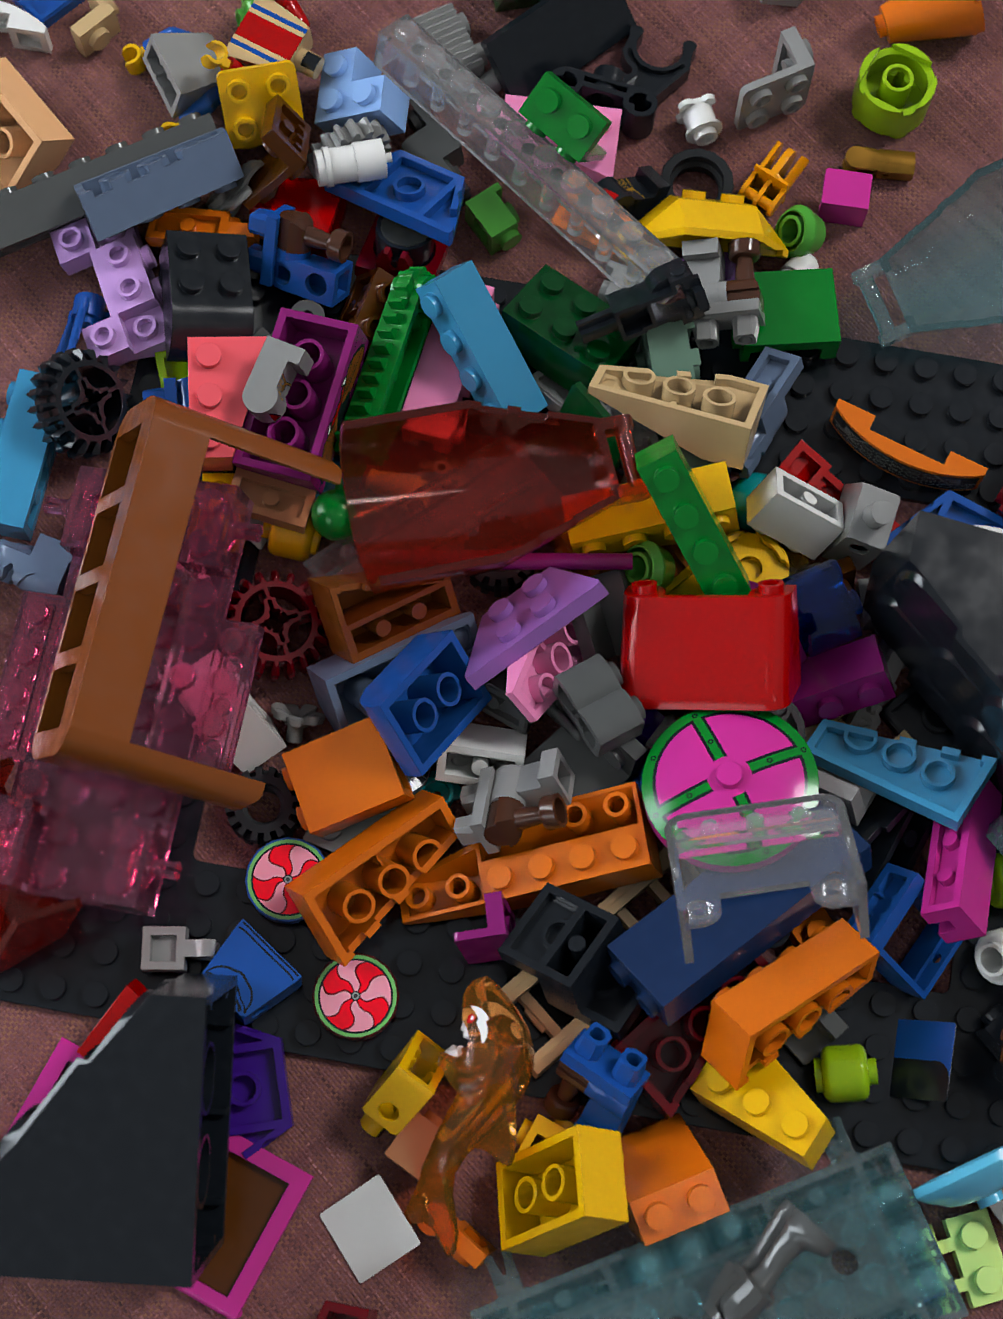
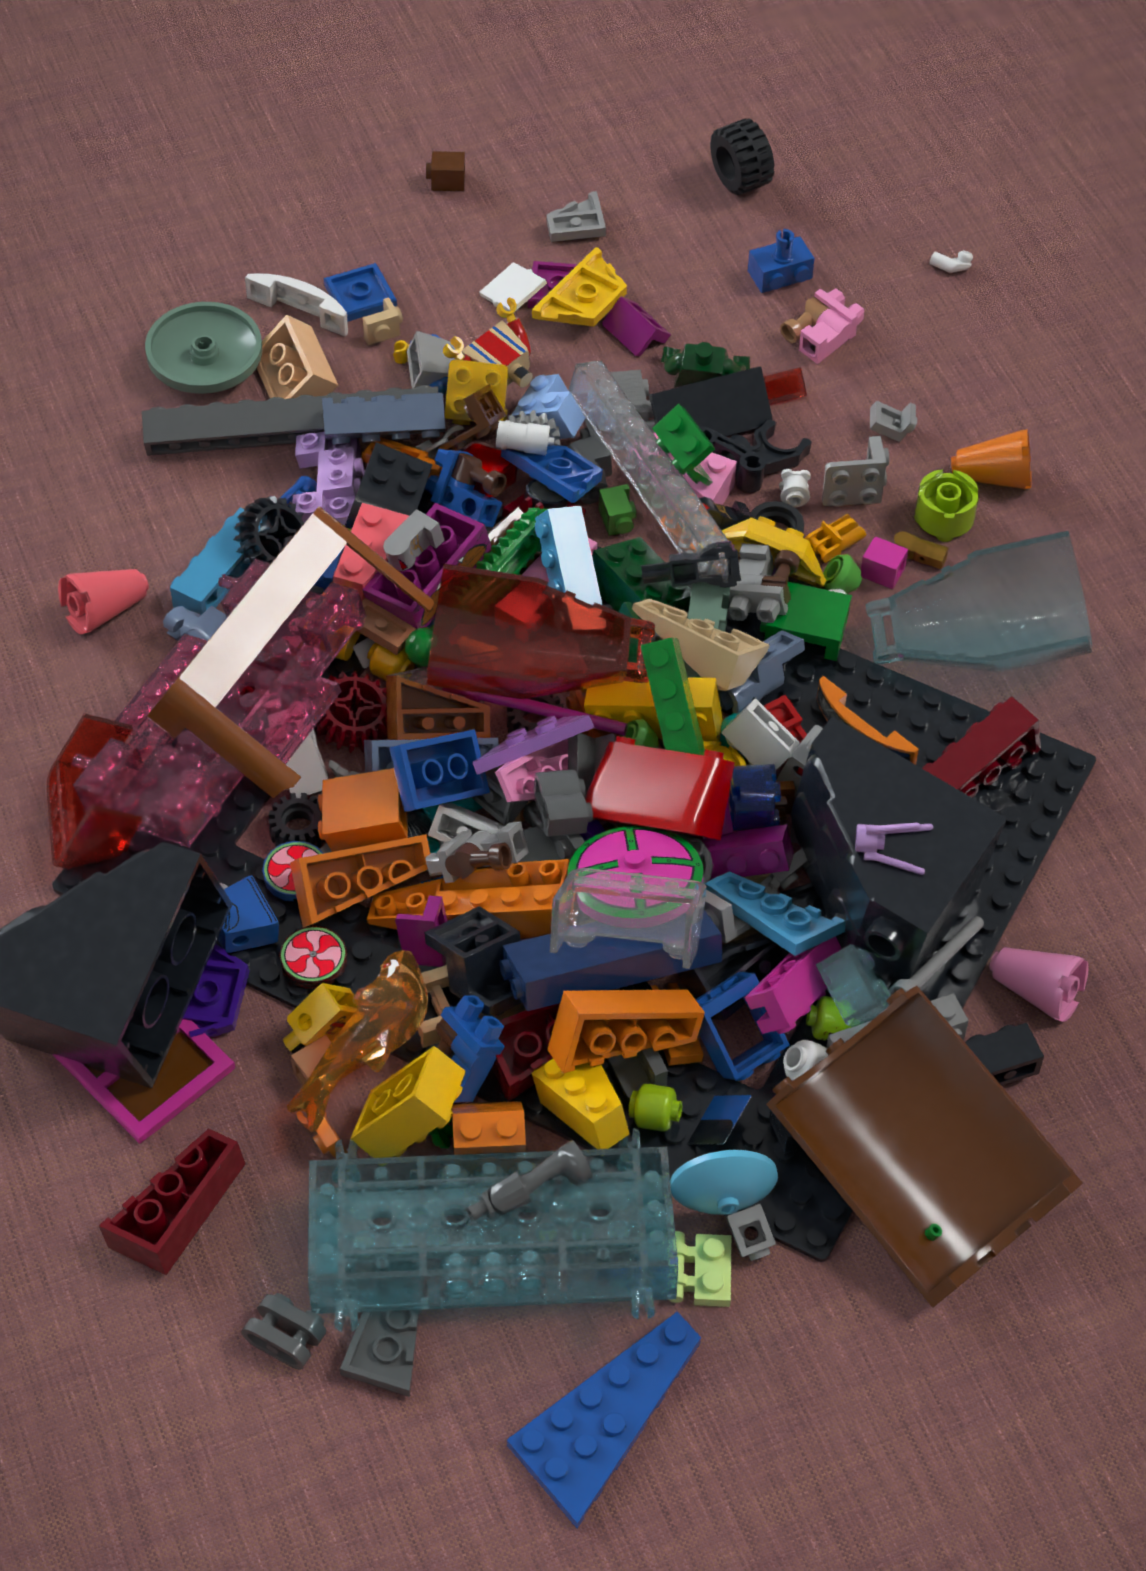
camera: 20 degrees right, 20 degrees down
(369, 1229) = (261, 1108): white sticker -> none

